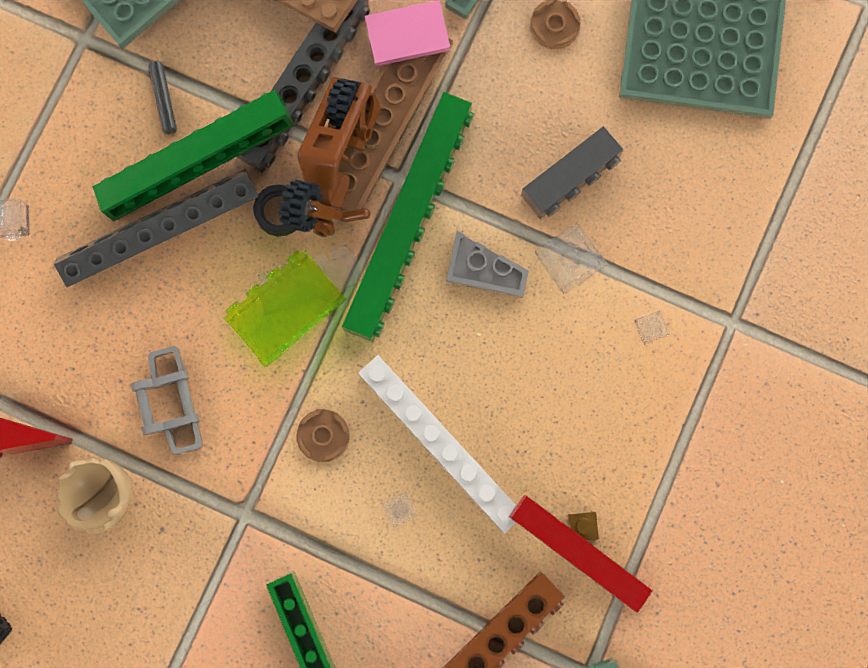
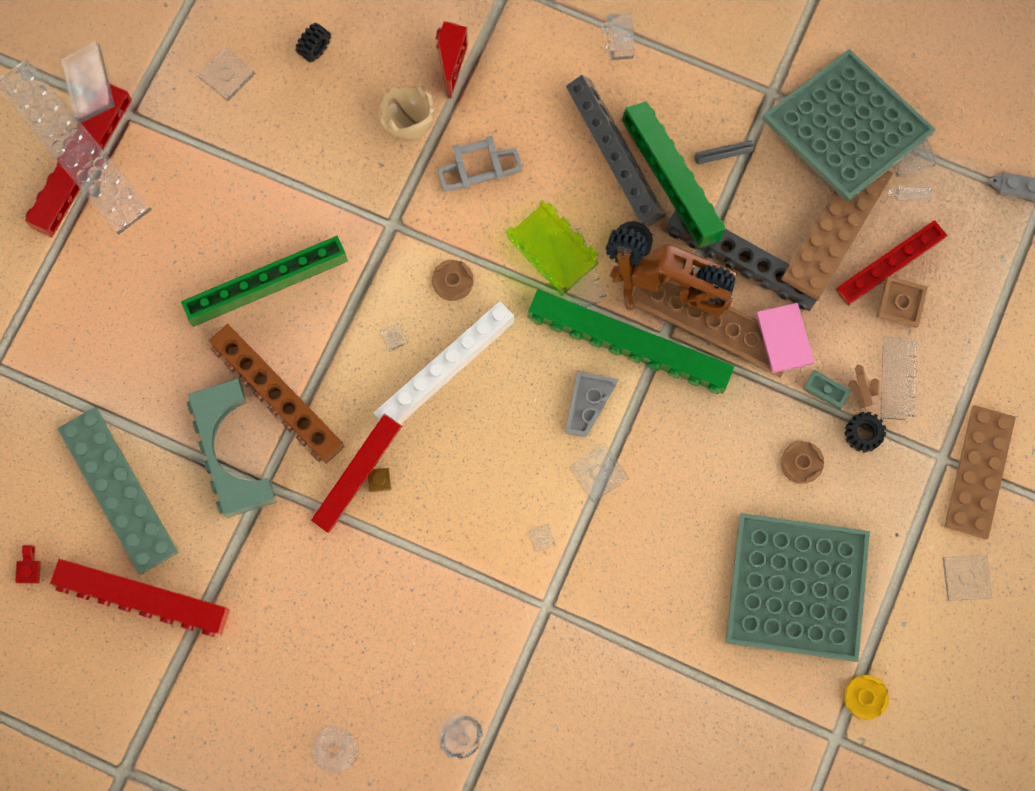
camera: 85 degrees right, 5 degrees down
(572, 172) = (669, 471): dark grey brick -> none

